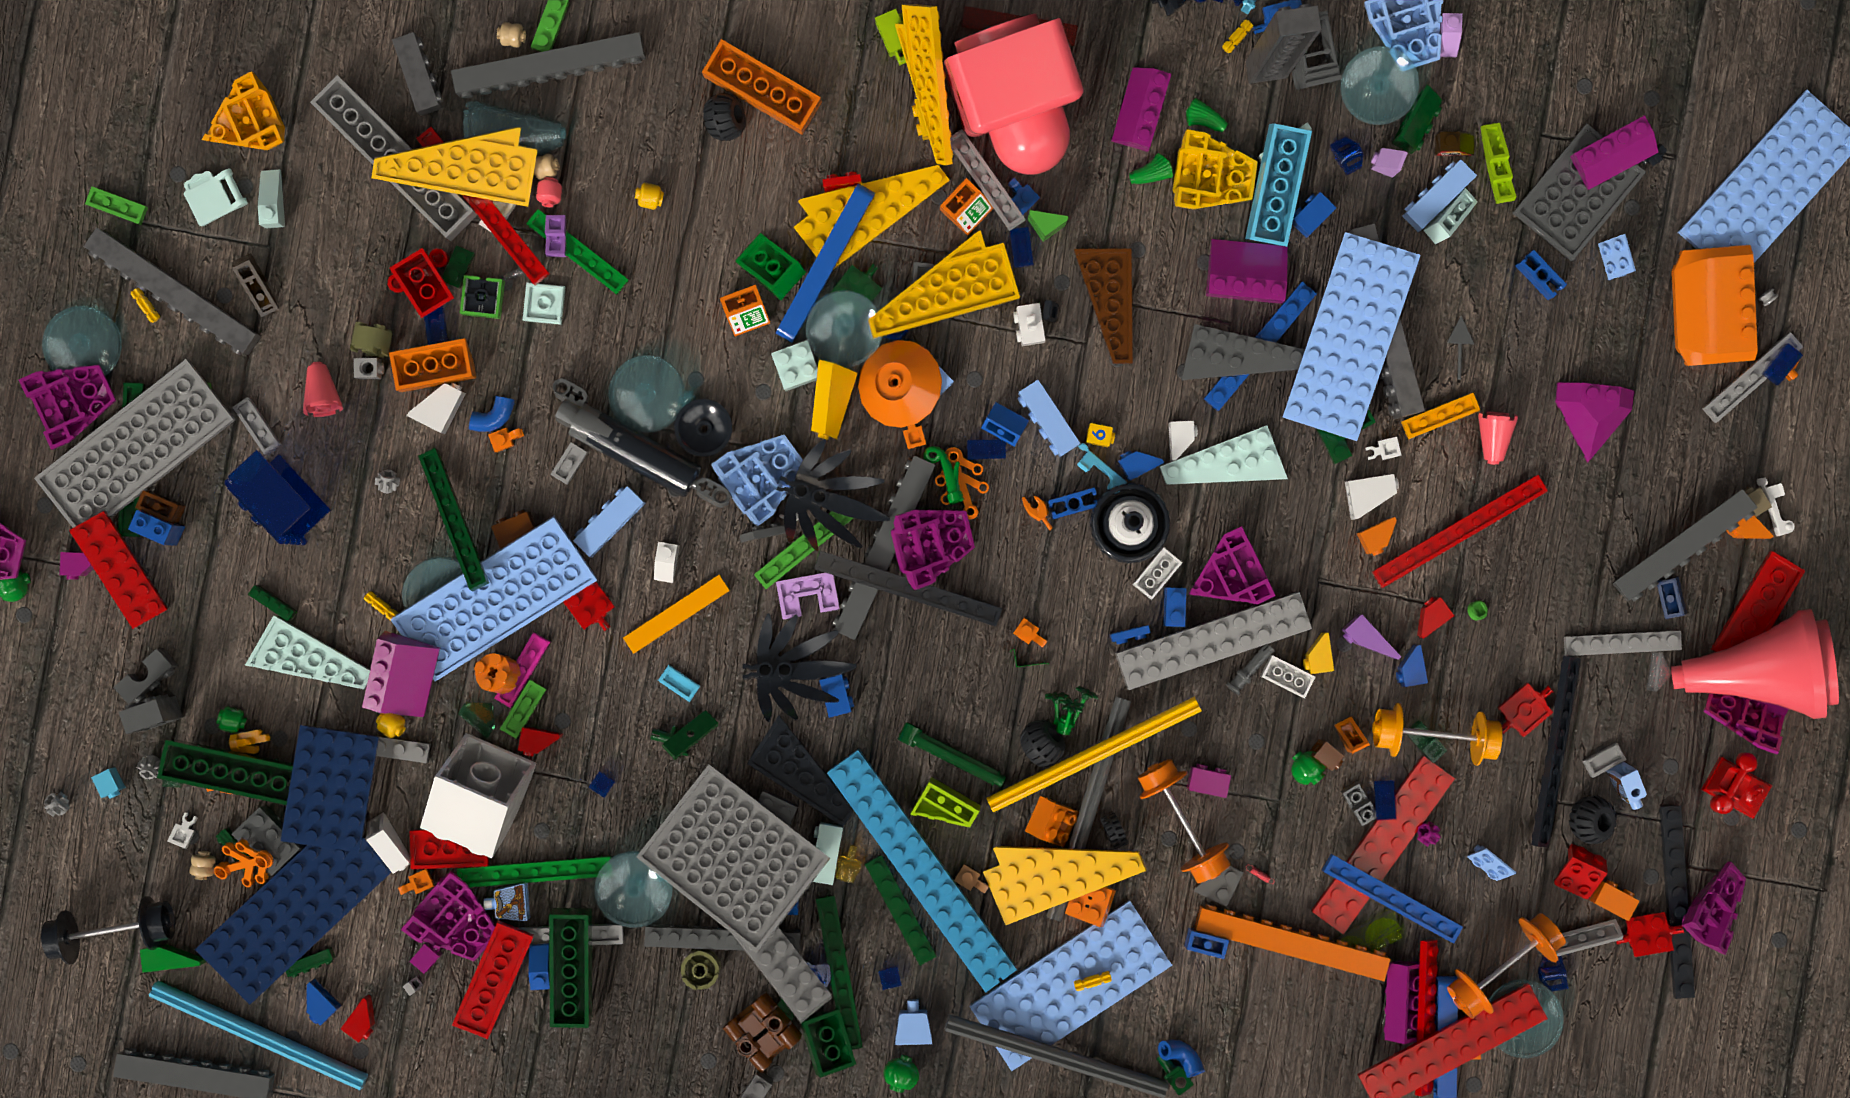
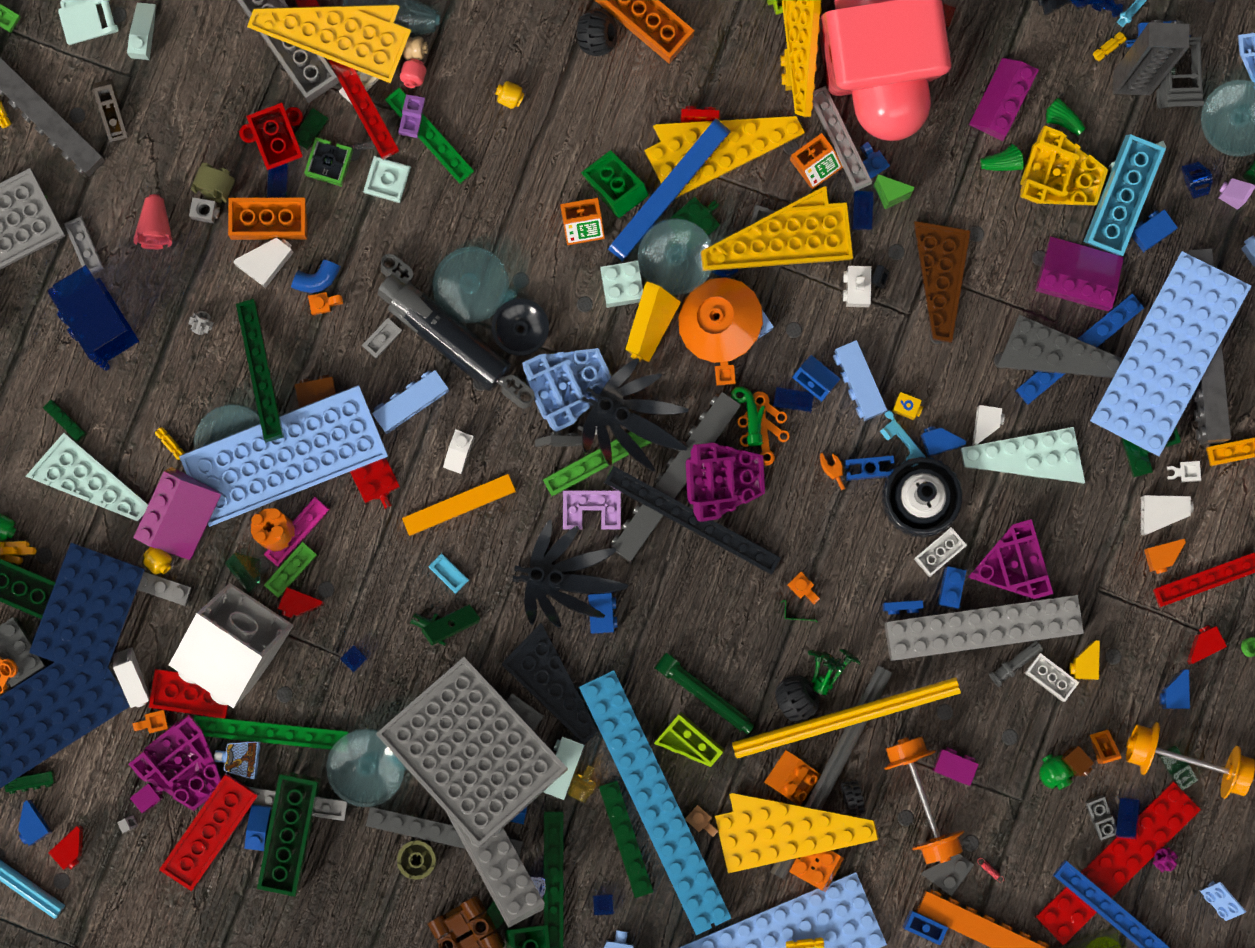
camera: 10 degrees right, 5 degrees down
(1365, 635) = (1135, 650): medium lavender slope -> none

